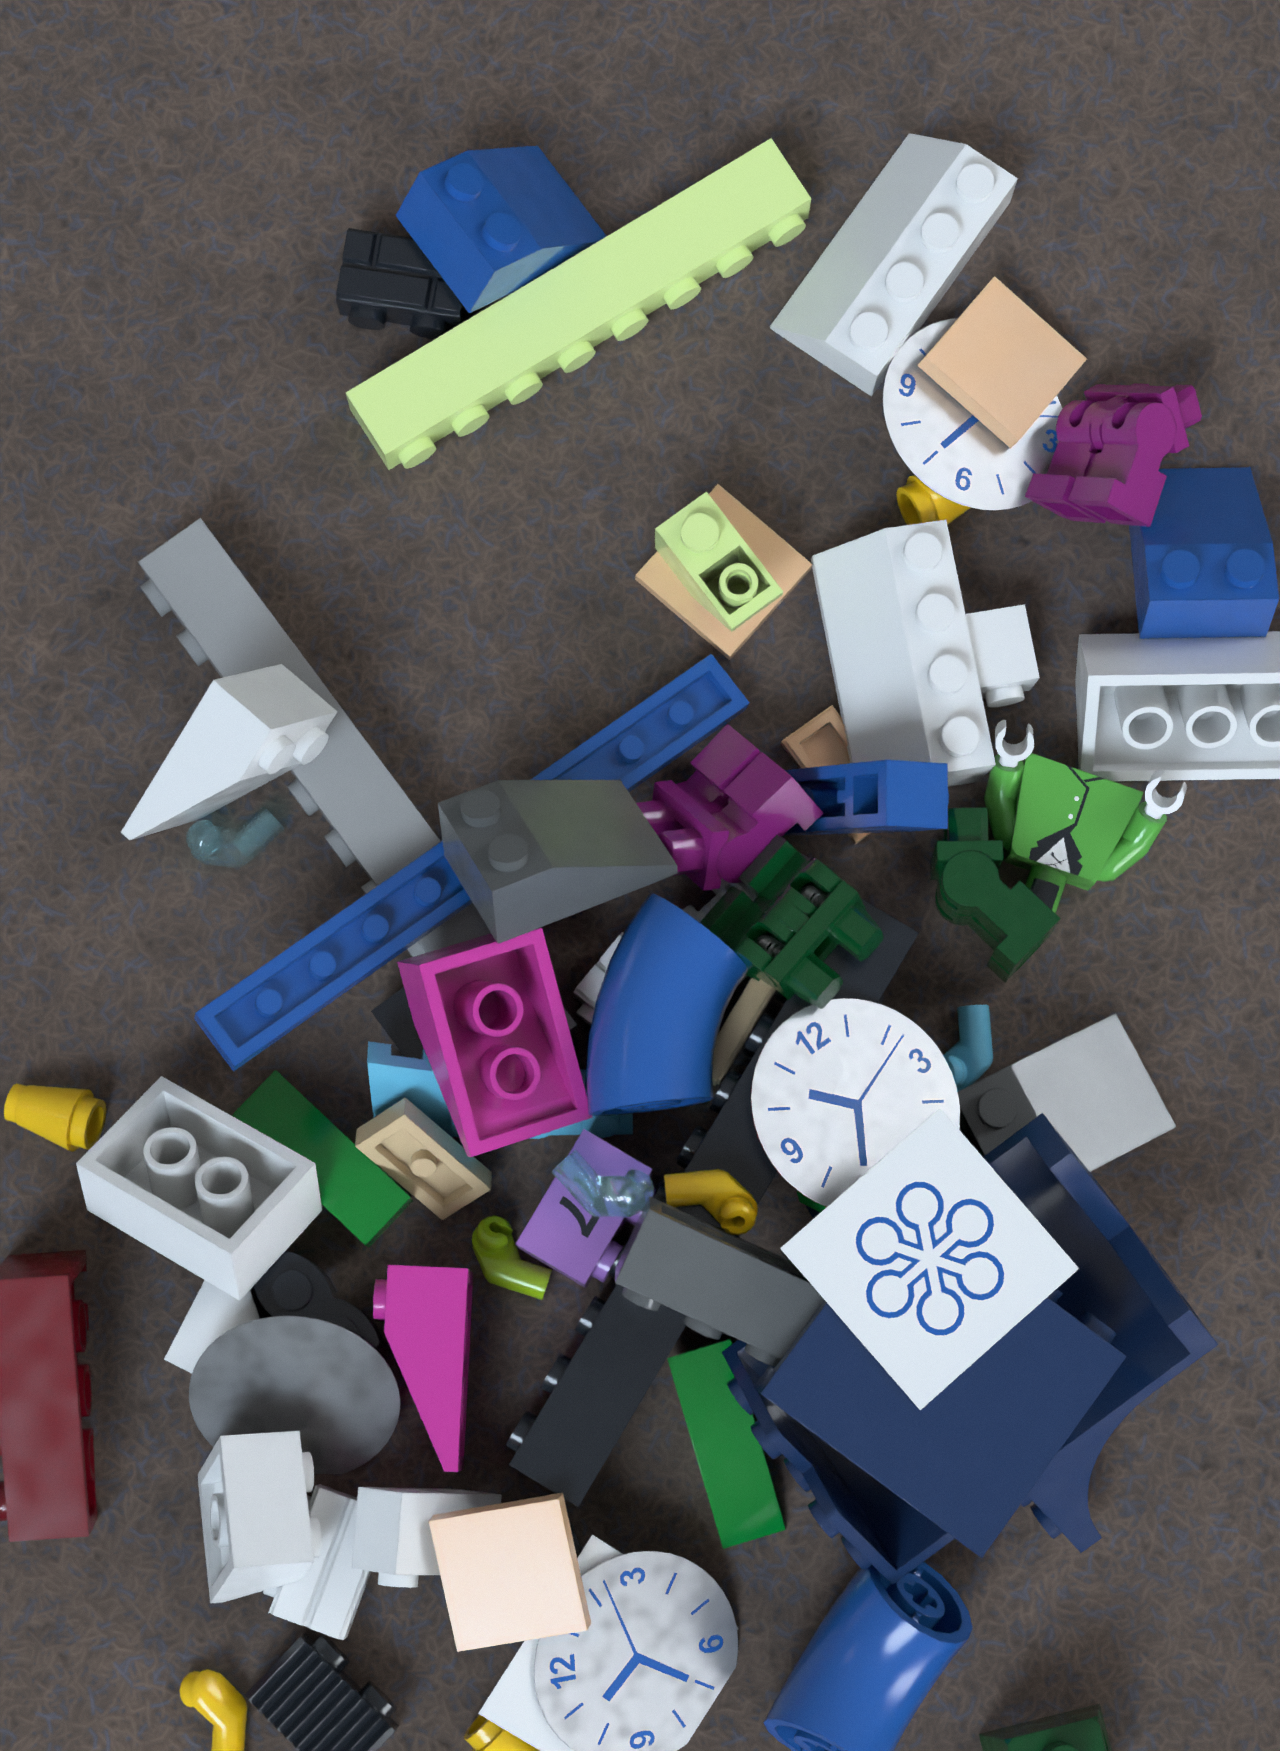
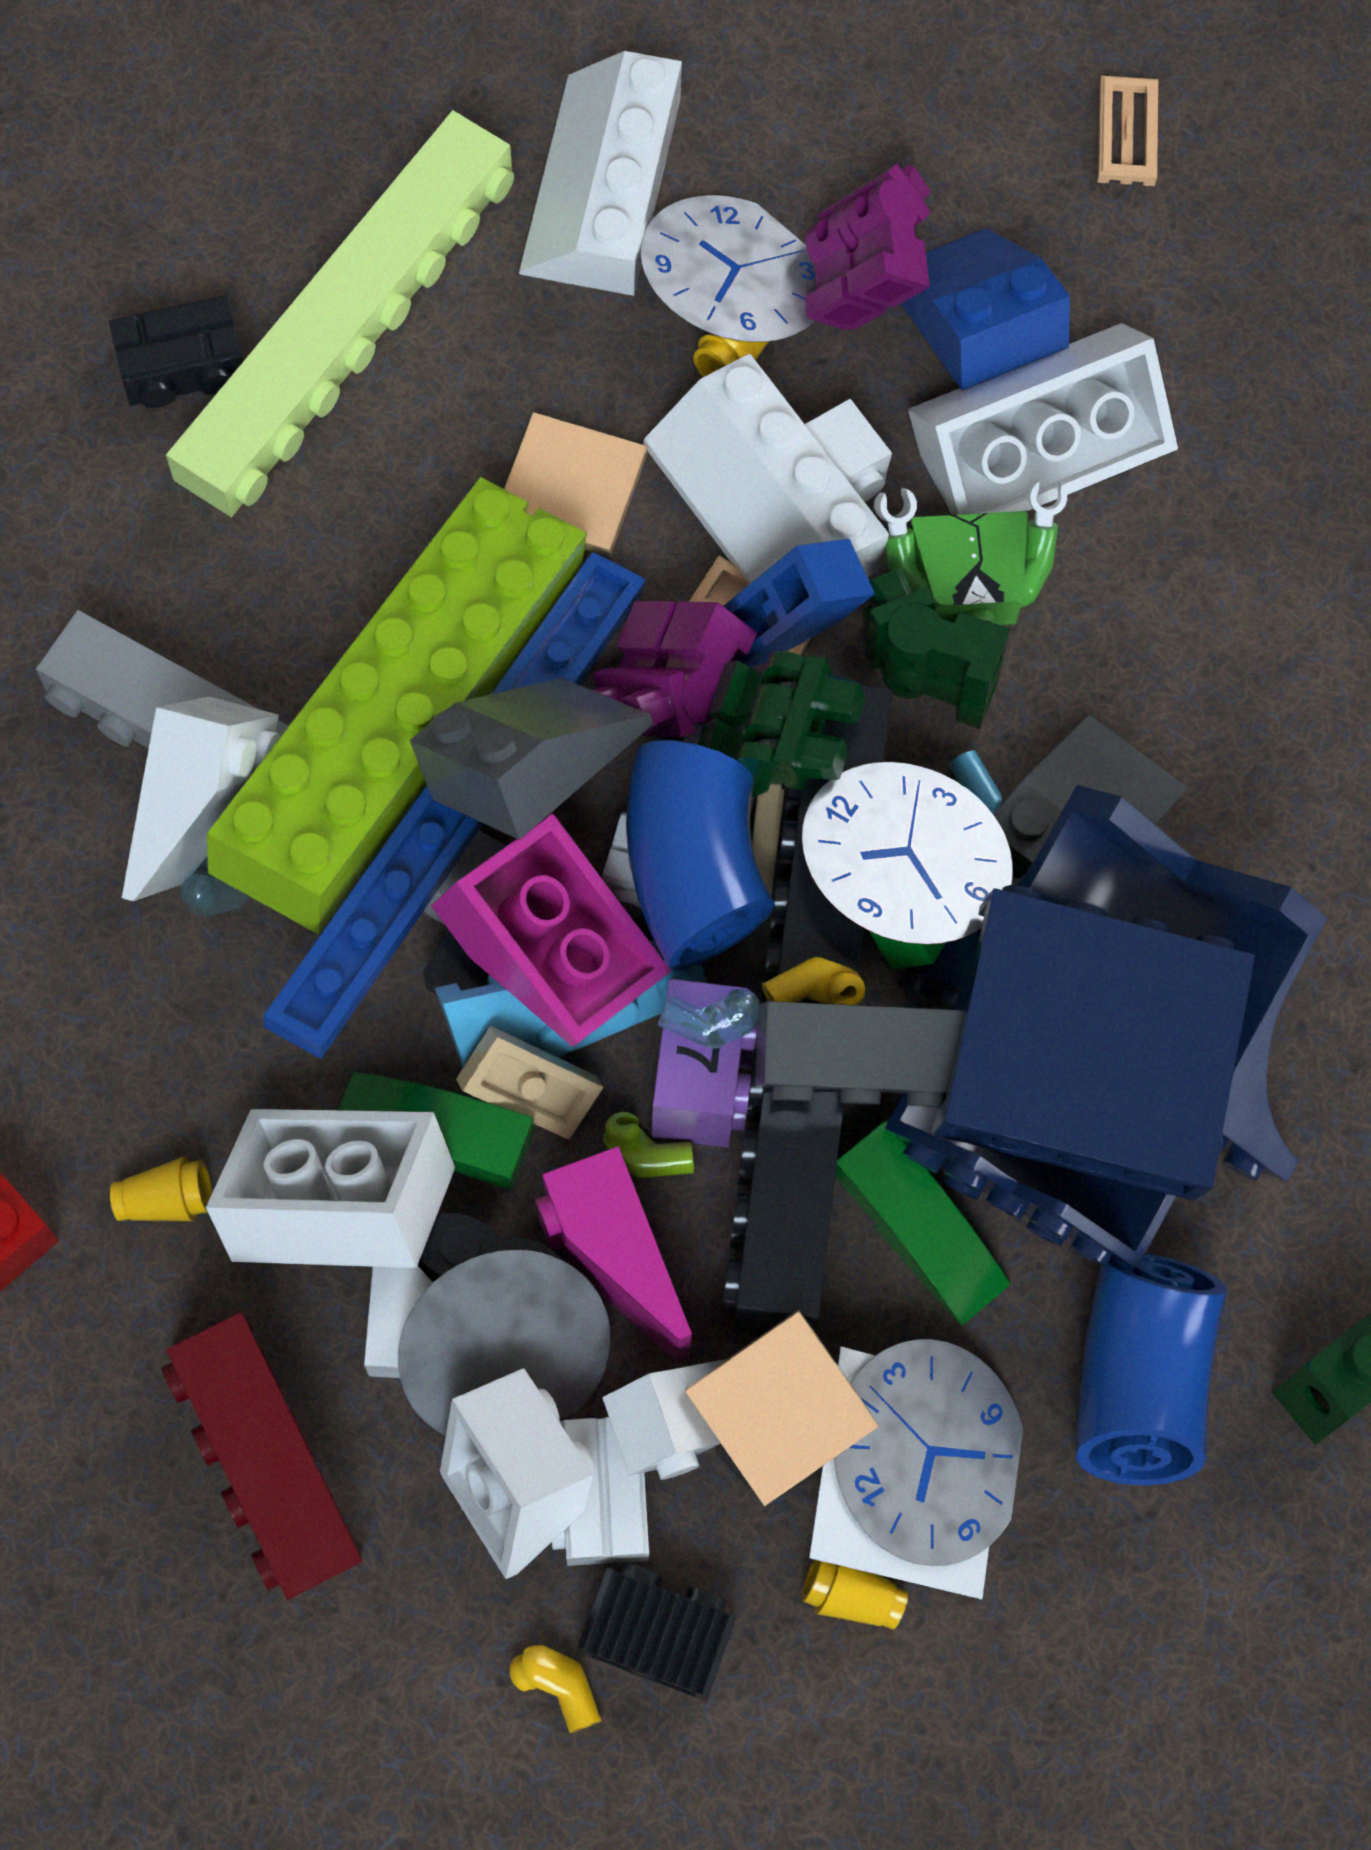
camera: 25 degrees left, 10 degrees down
(479, 719) = (346, 762): none -> lime piece
(495, 221) = (233, 264): blue slope -> none
(715, 563) = (561, 466): yellowish green slope -> none
(929, 1258) = (1041, 938): white sticker -> none
(1002, 362) = (736, 218): light nougat tile -> none

